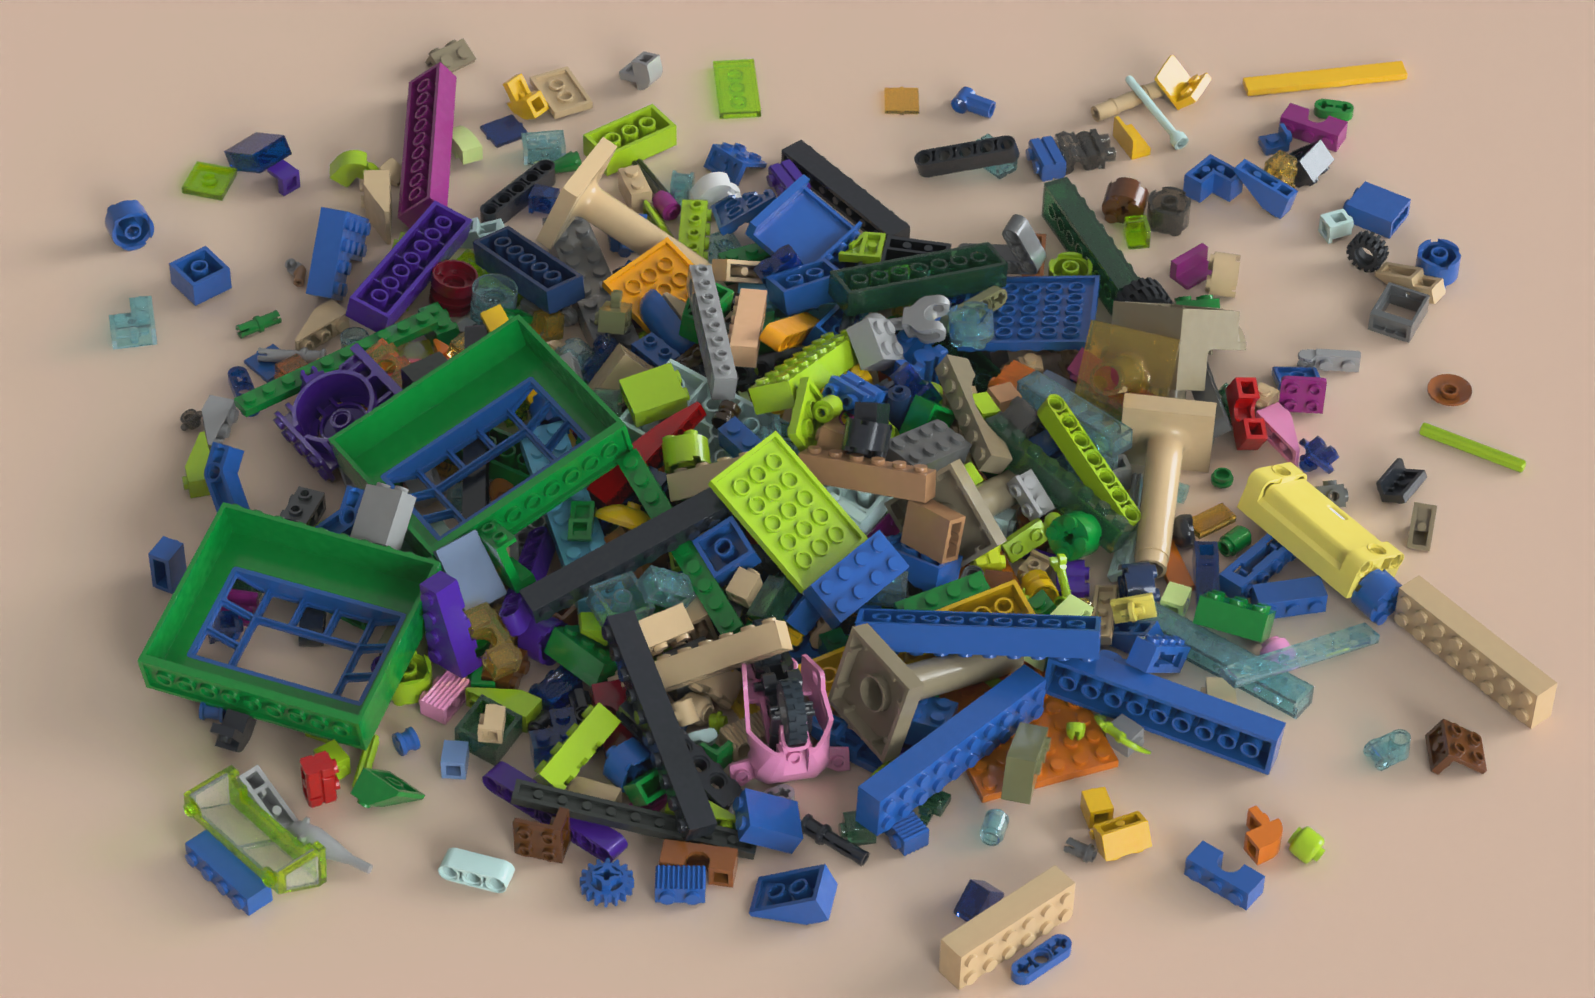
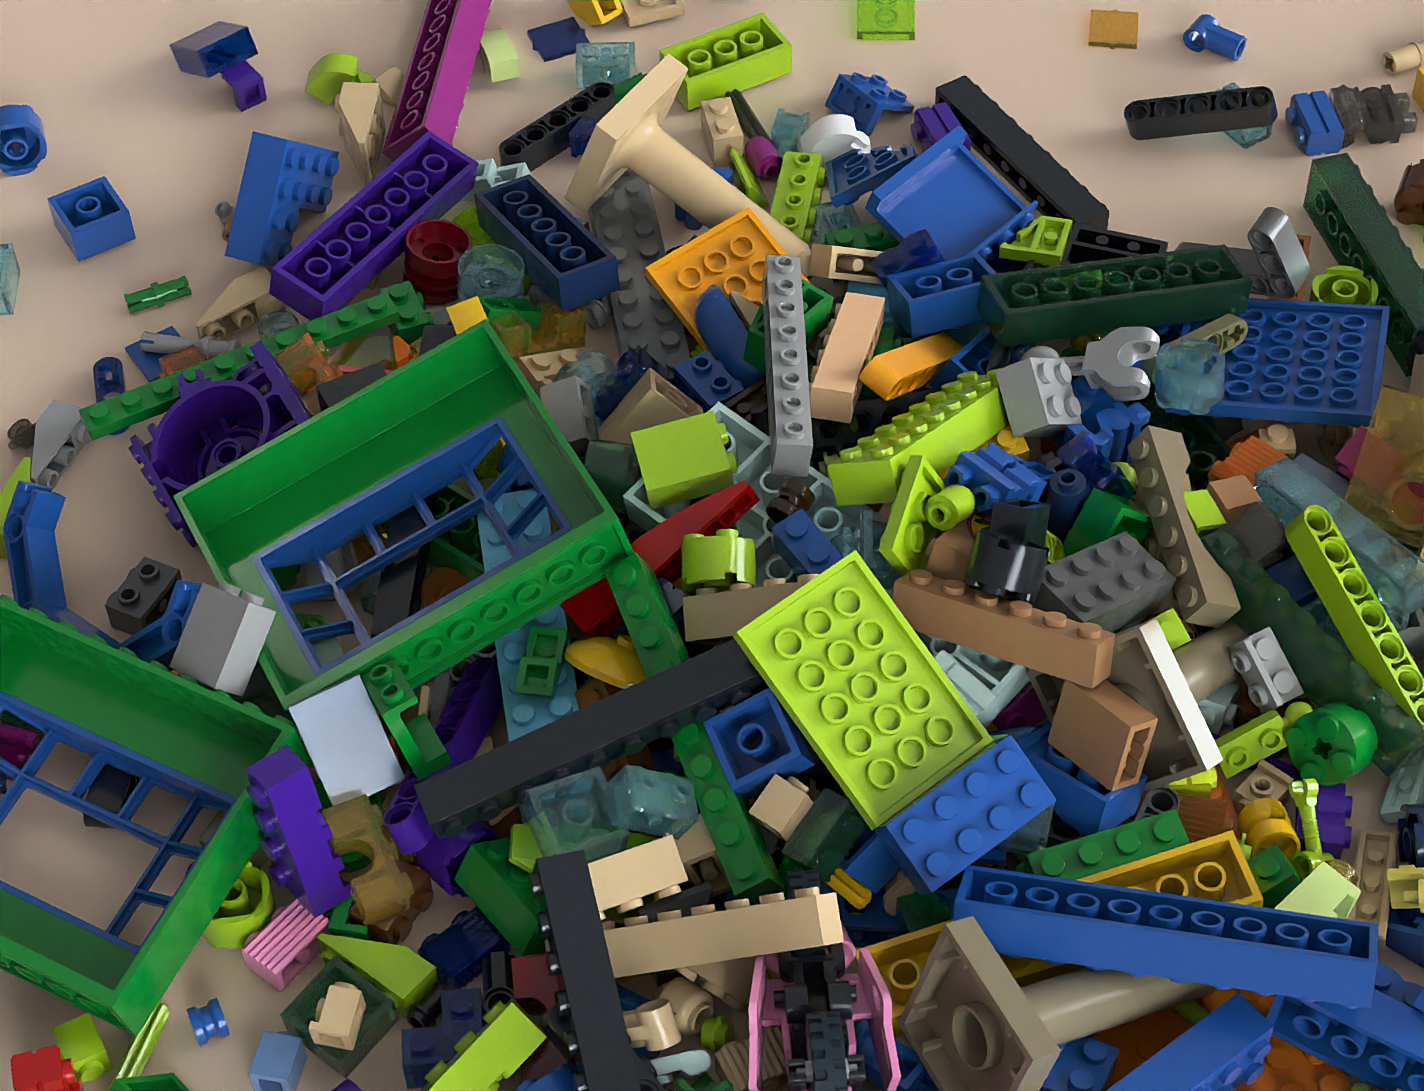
camera: 10 degrees right, 5 degrees up
(209, 180) = (146, 84): clear neon green tile -> none
(614, 315) = (654, 321): olive brick -> none

